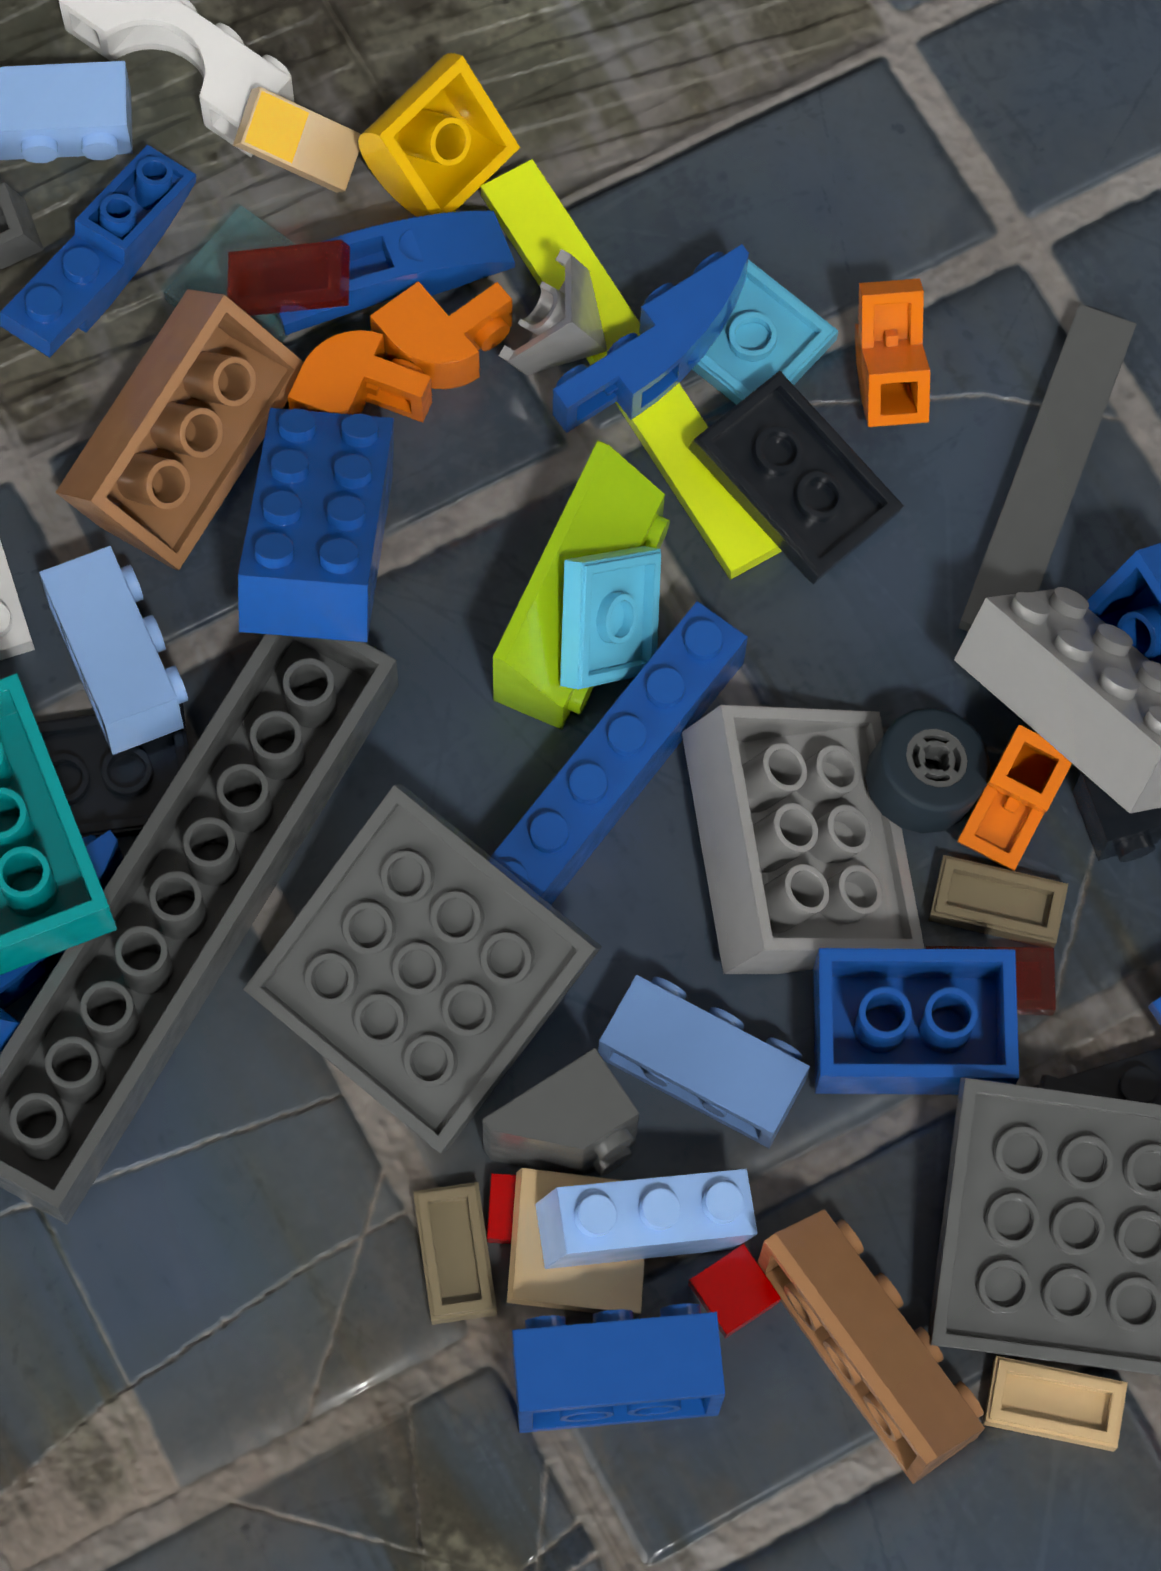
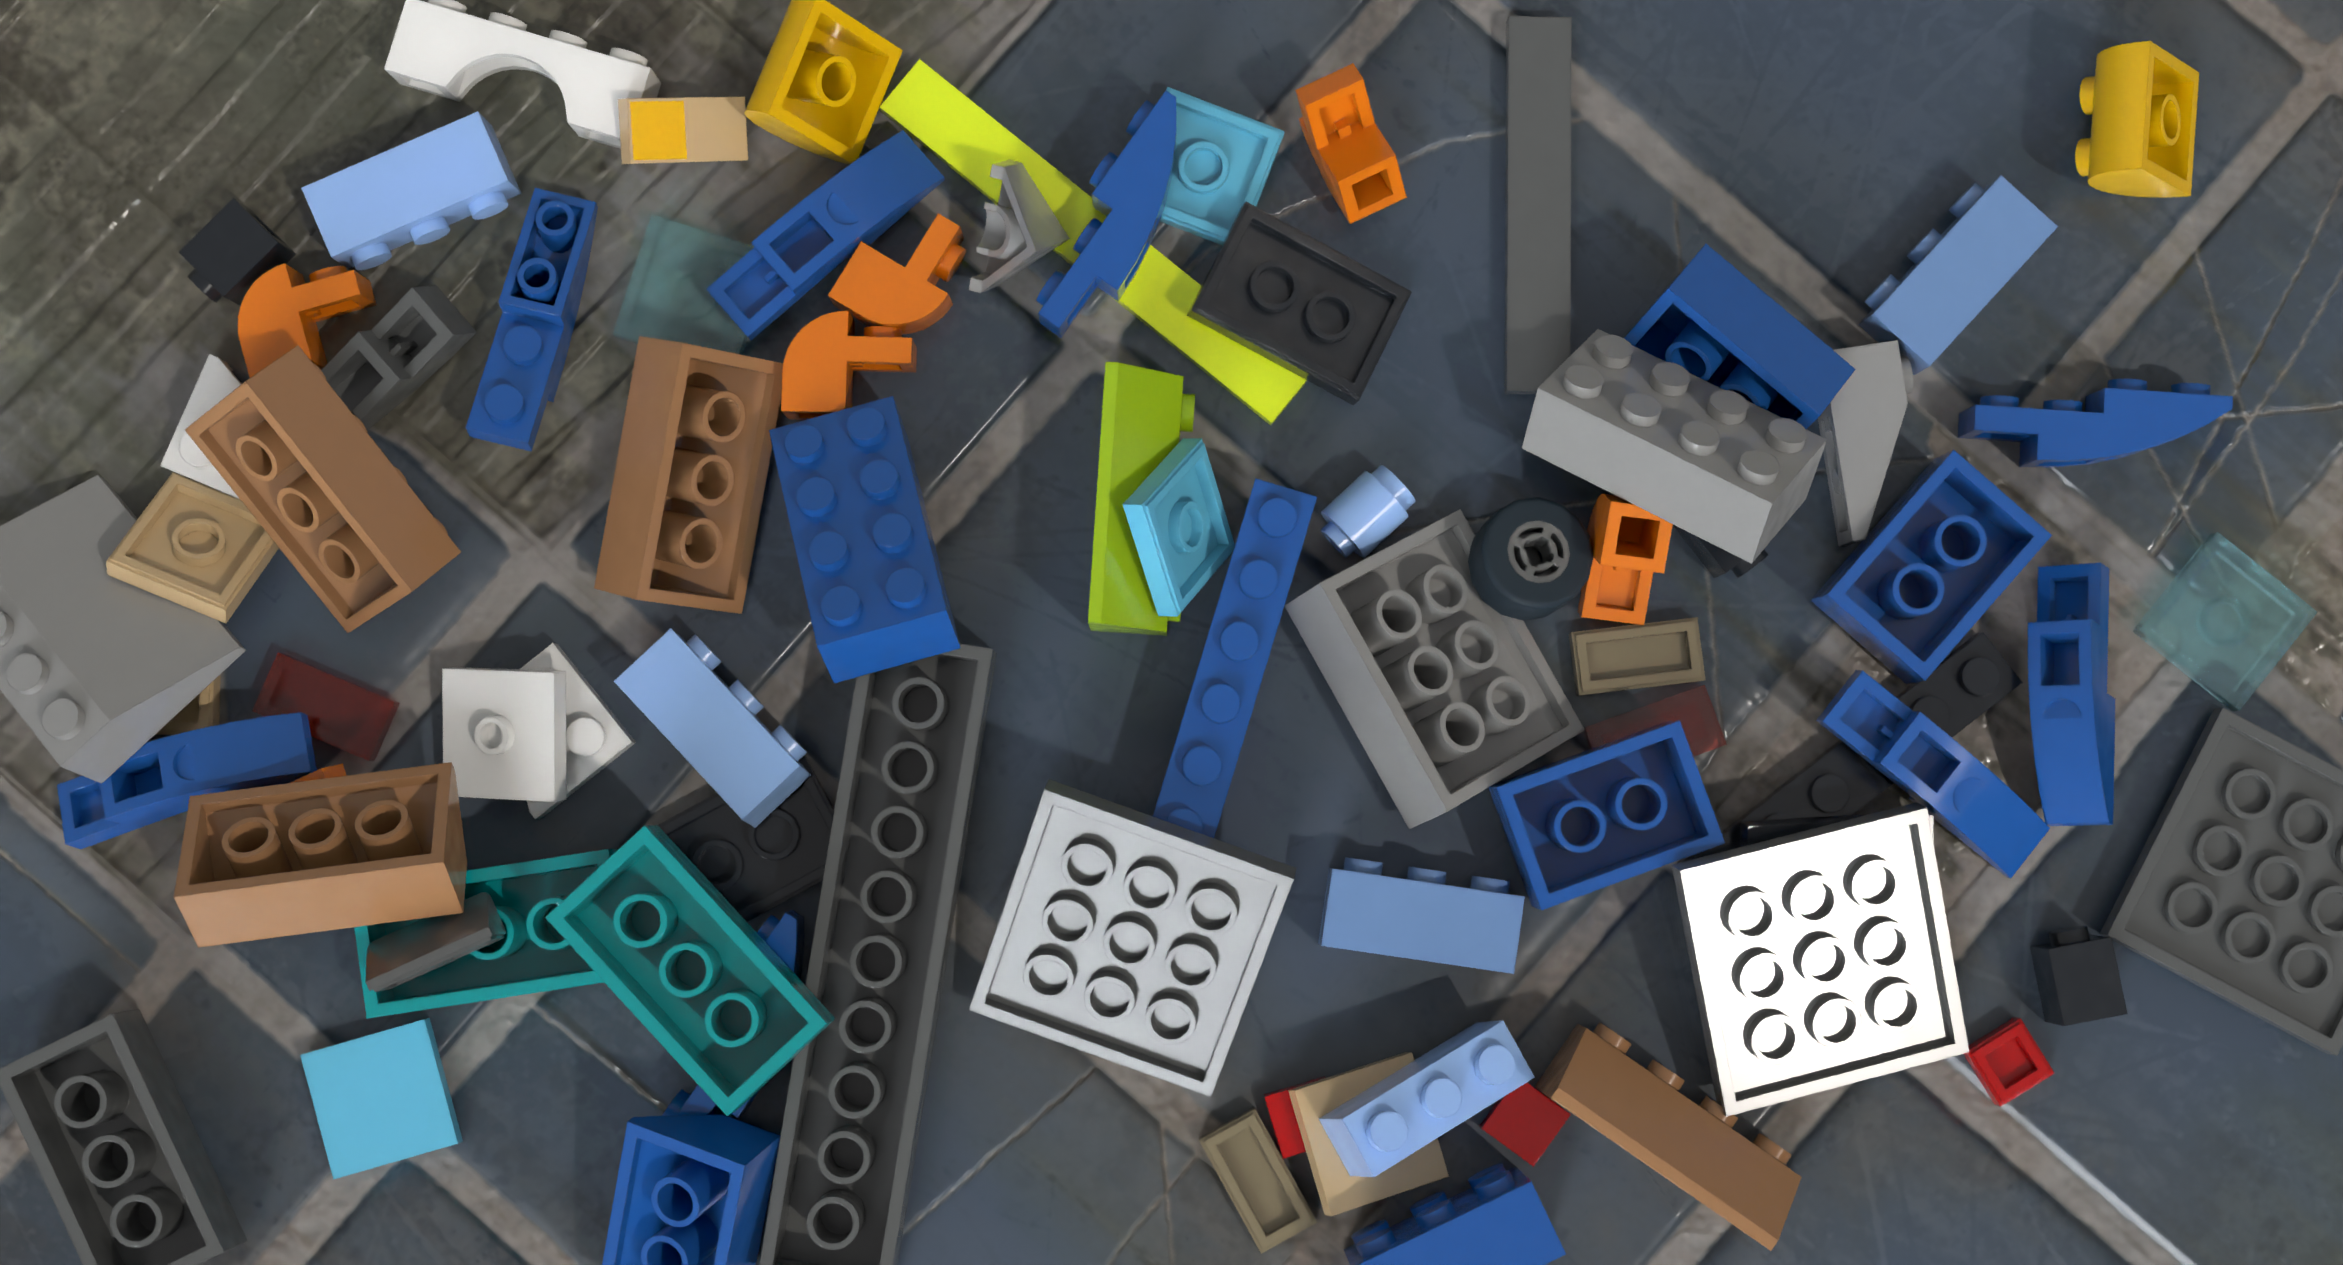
camera: 20 degrees left, 15 degrees up
(290, 277) = (735, 291): clear red tile -> none
(566, 1122) = (1322, 1036): dark grey slope -> none
(790, 676) = (1366, 512): none -> light blue brick
(1055, 1403) = (1851, 1116): tan tile -> none

